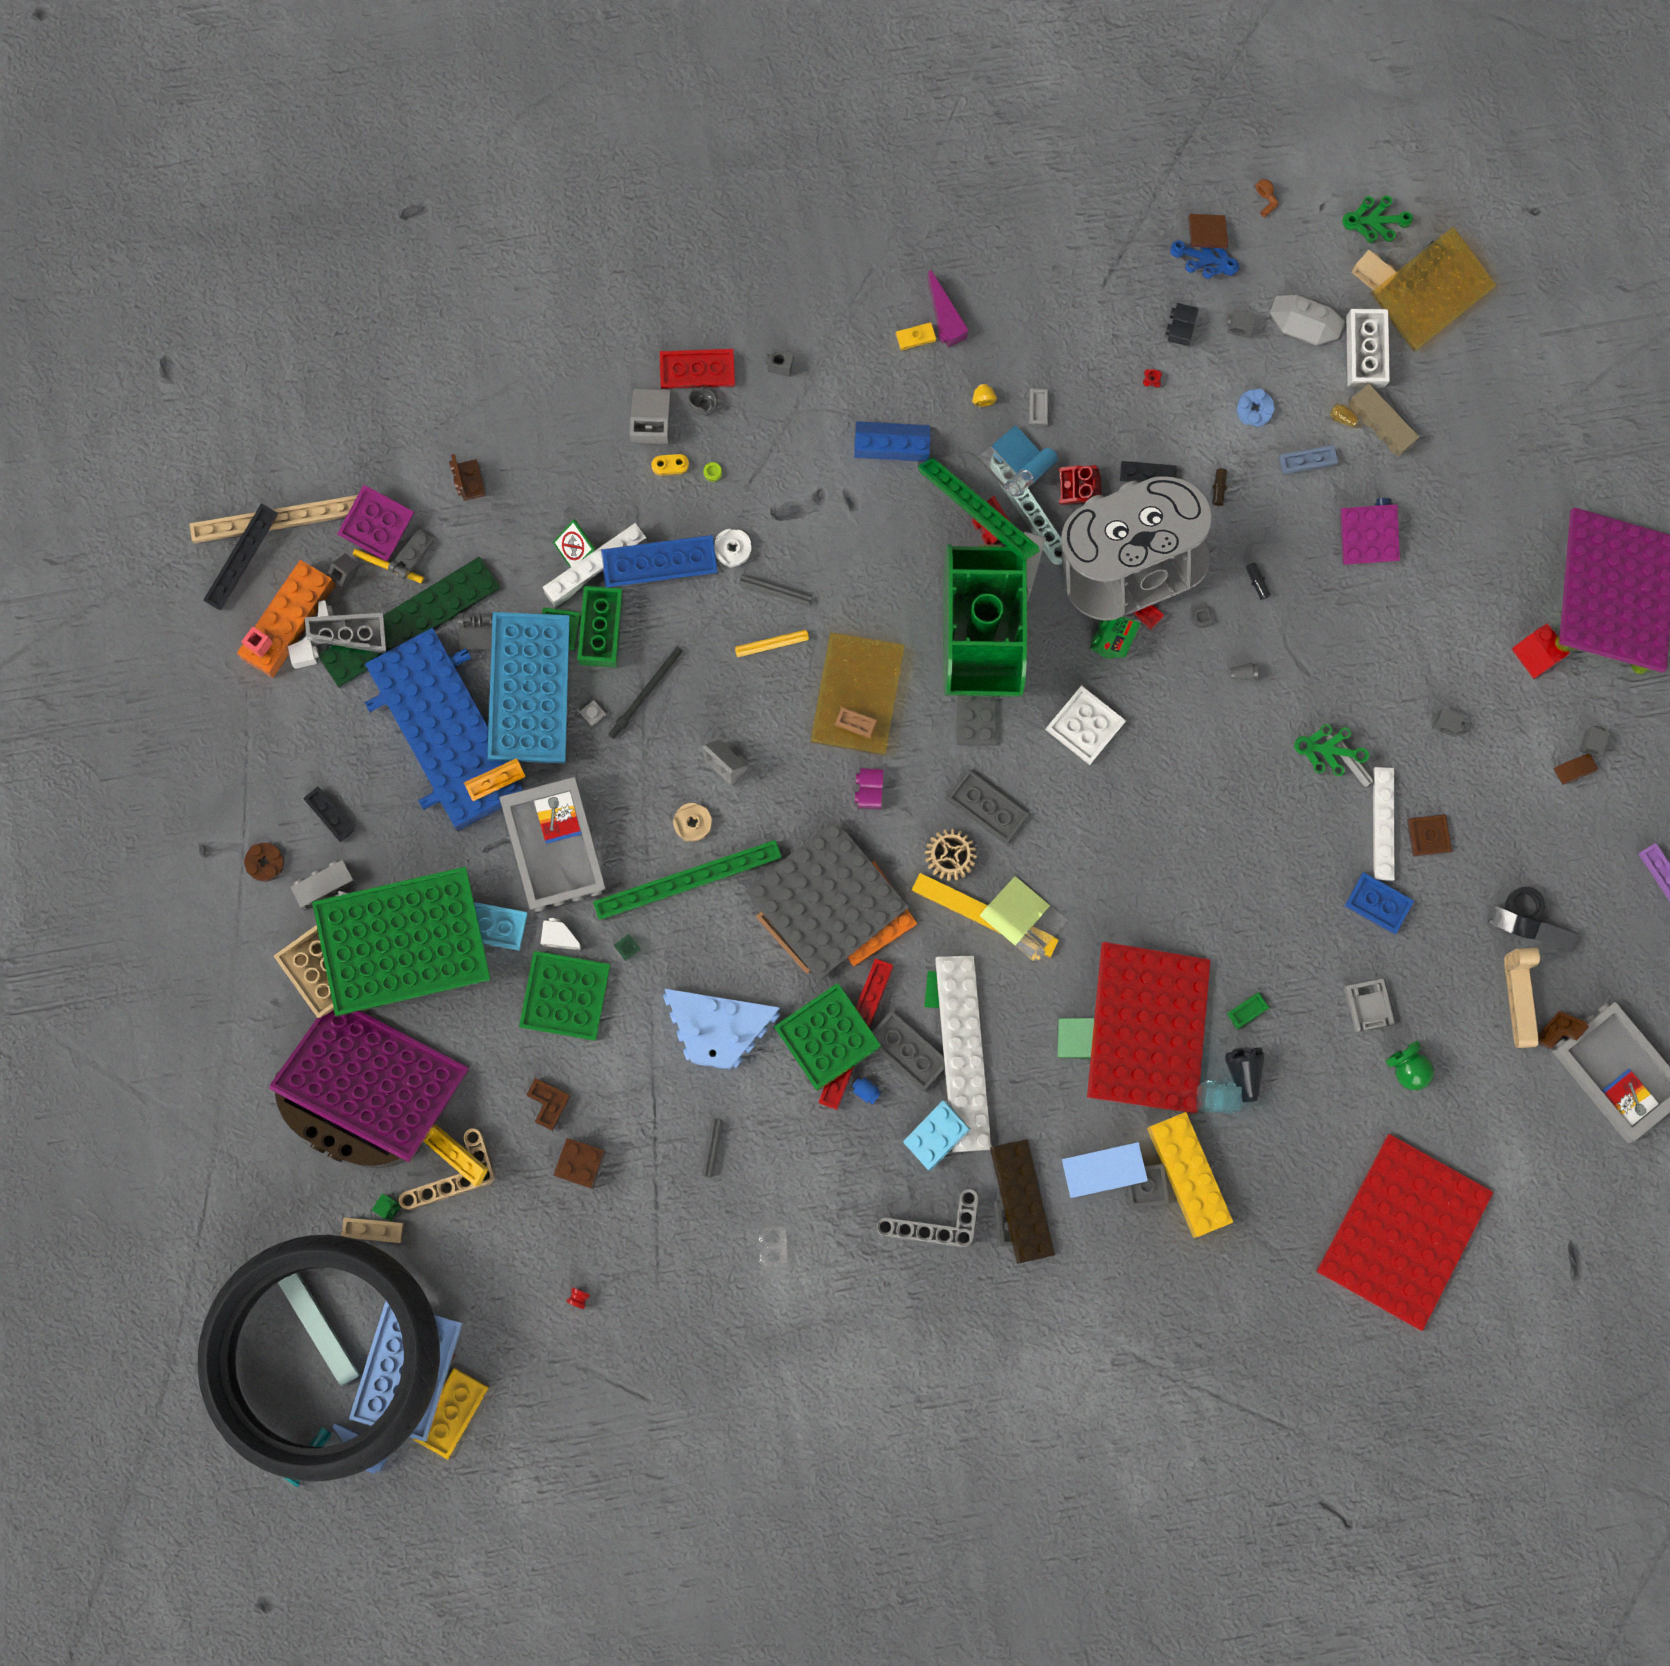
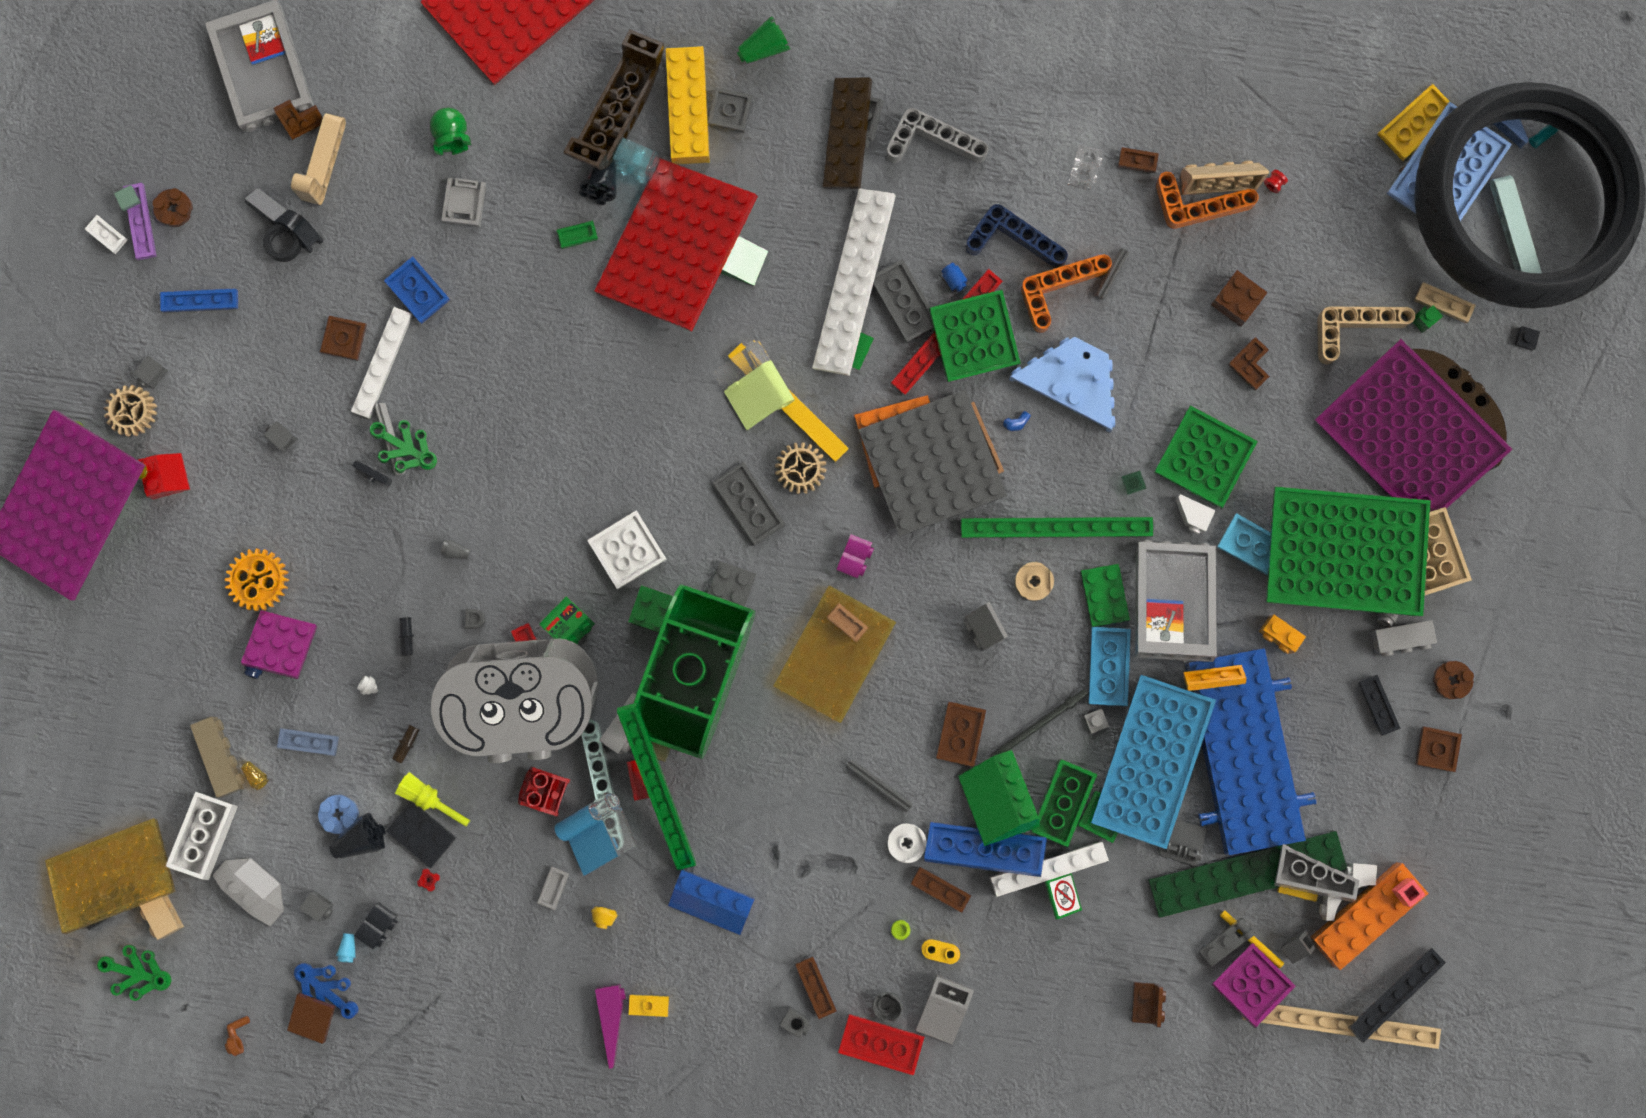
camera: 155 degrees left, 5 degrees up
(261, 791) = (1438, 749): none -> reddish brown plate
(279, 1223) = (1527, 338): none -> black plate
(440, 848) = (1282, 634): none -> light orange brick
(456, 1155) = (1350, 338): yellow plate -> none
(596, 766) = (1109, 666): none -> dark azure plate
(620, 832) = (1105, 595): none -> green plate
(634, 1281) = (1222, 178): none -> tan slope
(644, 1246) = (1200, 207): none -> orange beam
(661, 609) = (999, 798): none -> green slope
(687, 516) = (940, 889): none -> reddish brown plate
(715, 659) = (961, 734): none -> reddish brown plate
(723, 1273) = (1138, 160): none -> reddish brown plate
(758, 966) = (1017, 424): none -> blue arm
(763, 1120) = (1058, 282): none -> orange beam
(771, 643) = (903, 733): yellow axle -> none
(772, 397) = (816, 987): none -> reddish brown plate
(820, 1155) = (1016, 234): none -> dark blue beam
(936, 1135) = (905, 214): medium azure plate -> none
(1042, 677) = (650, 609): none -> green brick
(1104, 1170) = (763, 134): light blue tile -> none
(1137, 1266) = (763, 43): none -> green cone
(1142, 471) = (470, 782): black plate -> none
(1174, 415) = (421, 834): none -> black plate
(1182, 445) = (426, 797): none -> neon yellow piece
(1200, 297) = (346, 950): none -> medium azure cone
(1226, 391) = (360, 838): none -> black cone
(1258, 1143) = (619, 102): none -> dark brown slope
(1275, 525) = (367, 686): none -> white plate
(1349, 715) = (372, 474): none -> black plate
(1428, 596) = (249, 564): none -> light orange gear
(1576, 768) = (179, 352): reddish brown slope -> none
(1579, 824) = (199, 300): none -> blue plate
(1610, 707) = (115, 416): none -> tan gear
(1632, 906) = (162, 204): none -> reddish brown plate

